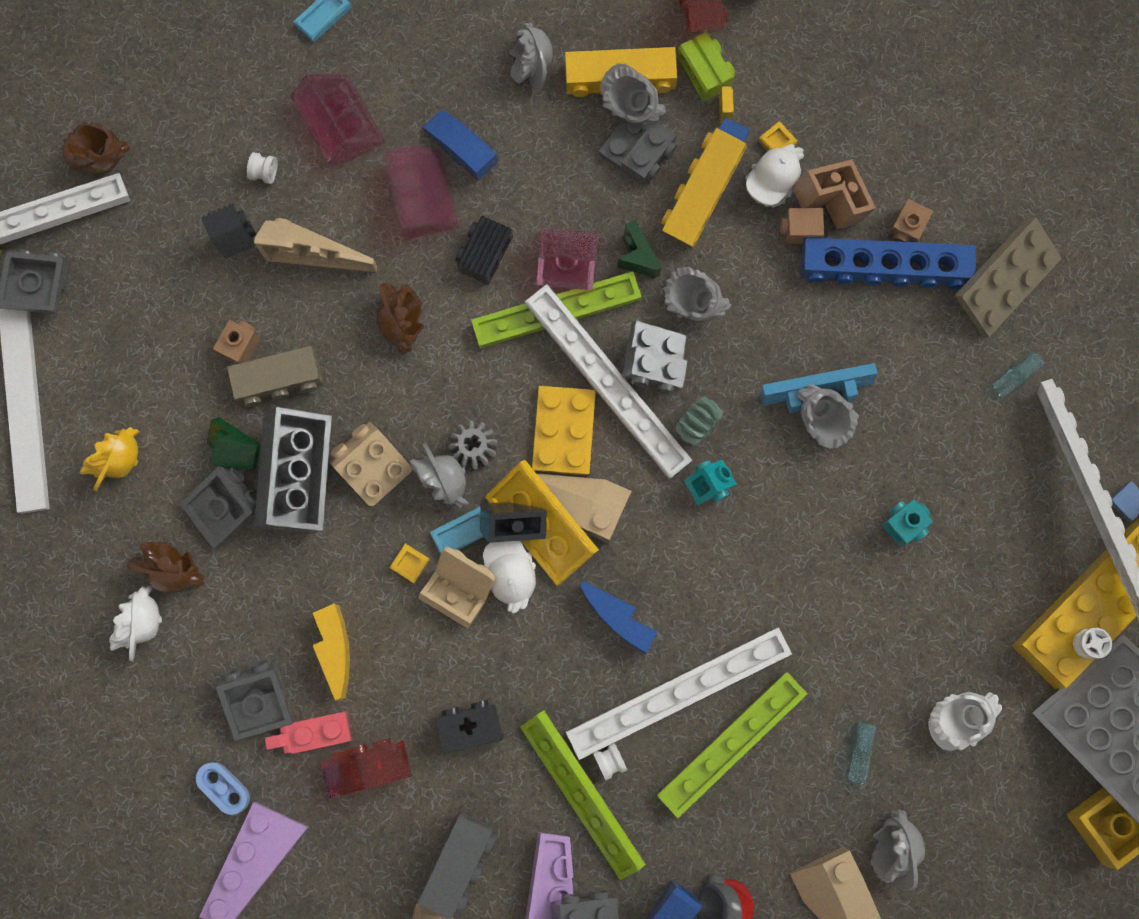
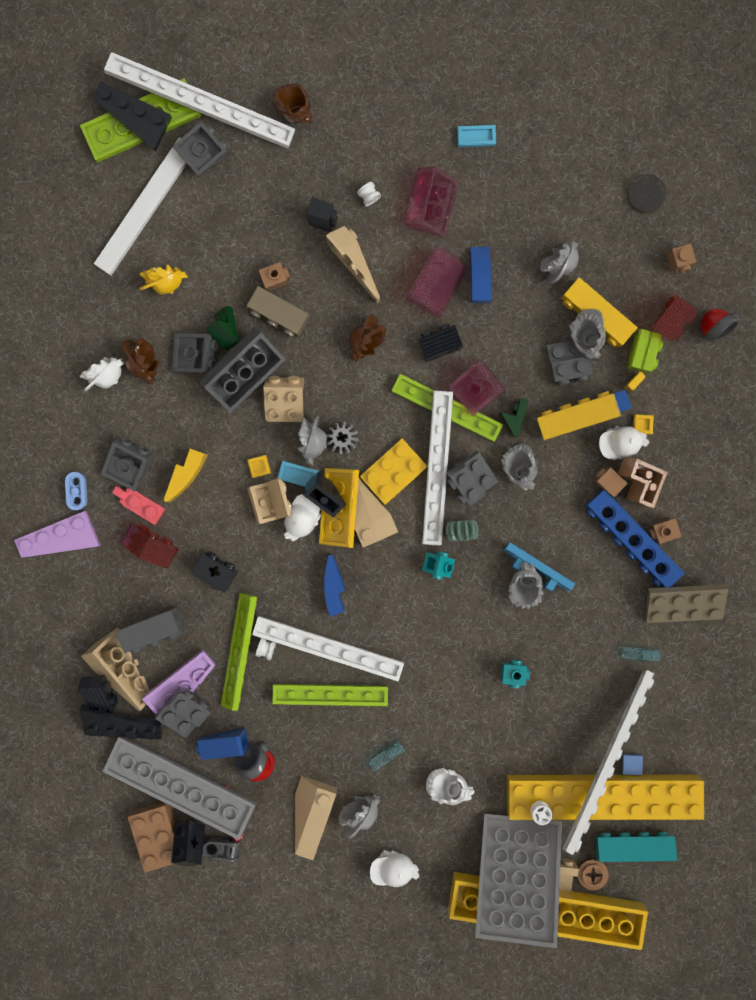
camera: 45 degrees right, 10 degrees up
(998, 878) = (393, 869): none -> white hair

